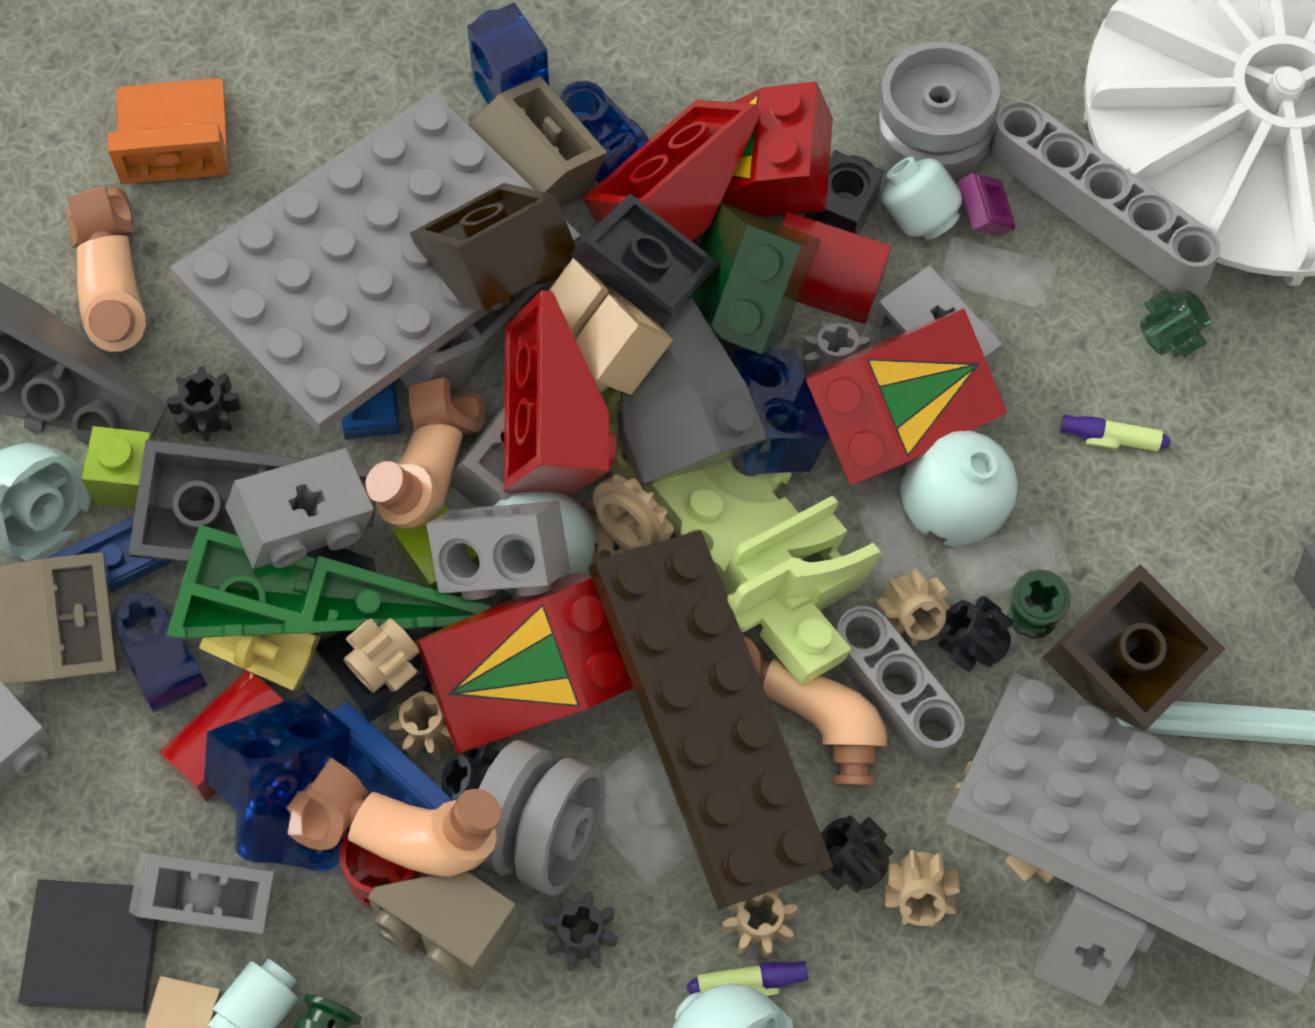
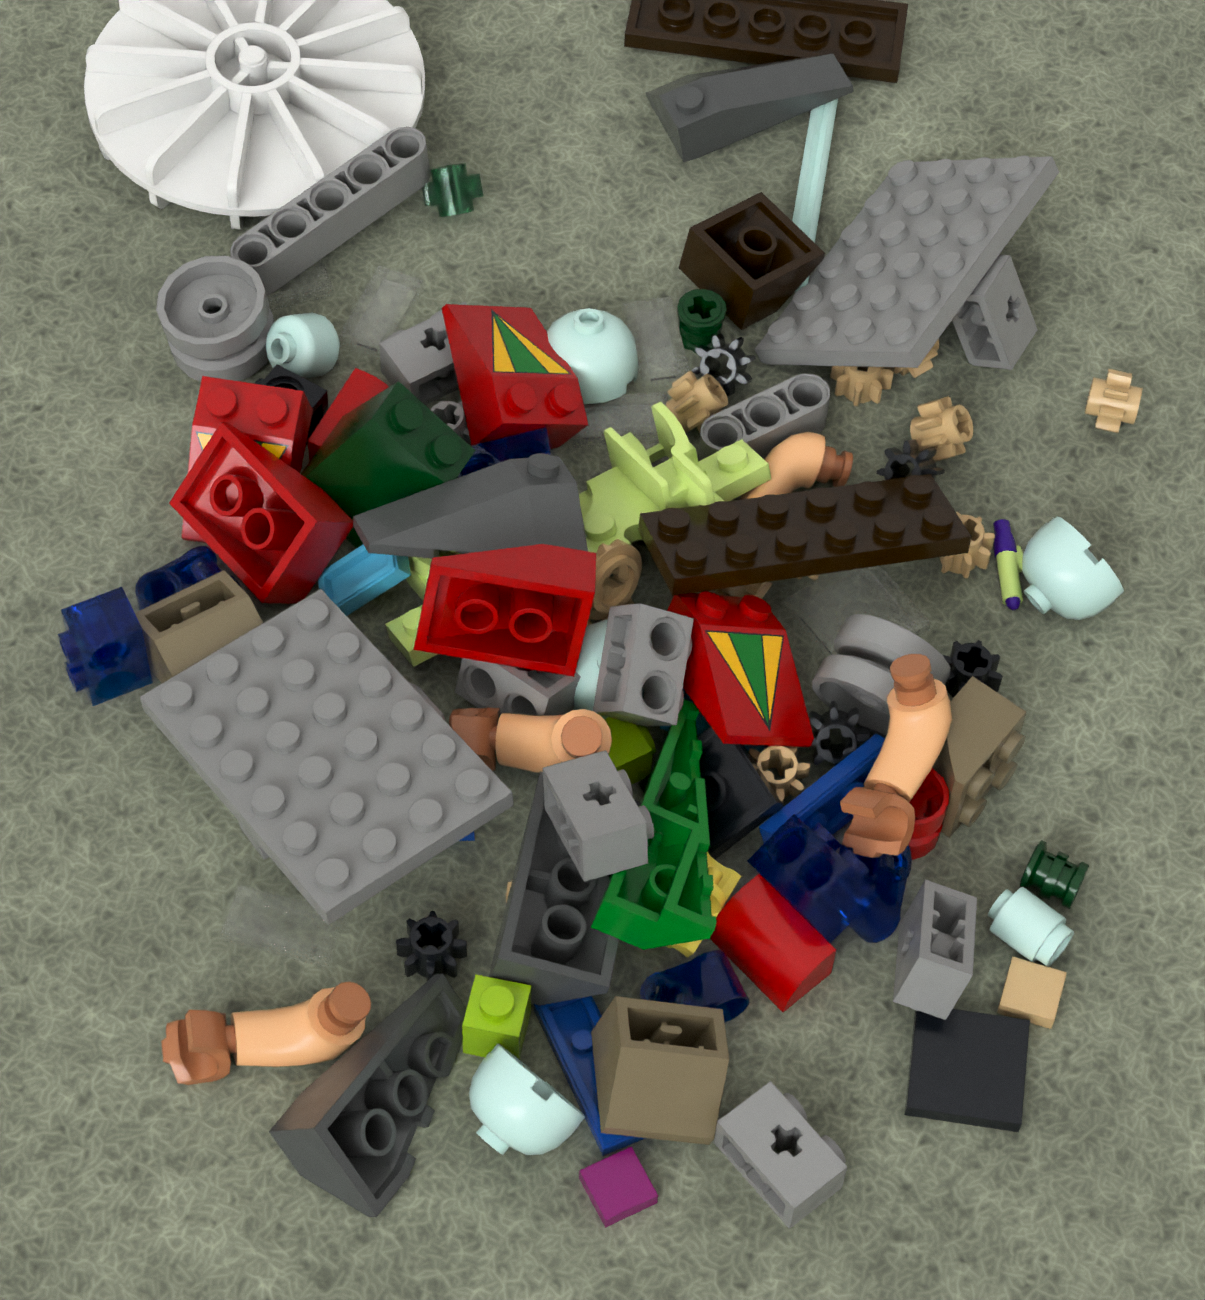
camera: 85 degrees left, 10 degrees down
(170, 131) = (105, 972): orange bracket -> none
(381, 655) = (736, 768): tan gear -> none
(497, 245) = (342, 631): dark brown slope -> none
(609, 330) = (458, 530): tan piece -> none
(645, 260) = (382, 511): black tile -> none
(987, 204) = (314, 302): magenta tile -> none
(1112, 434) = (542, 257): piece -> none

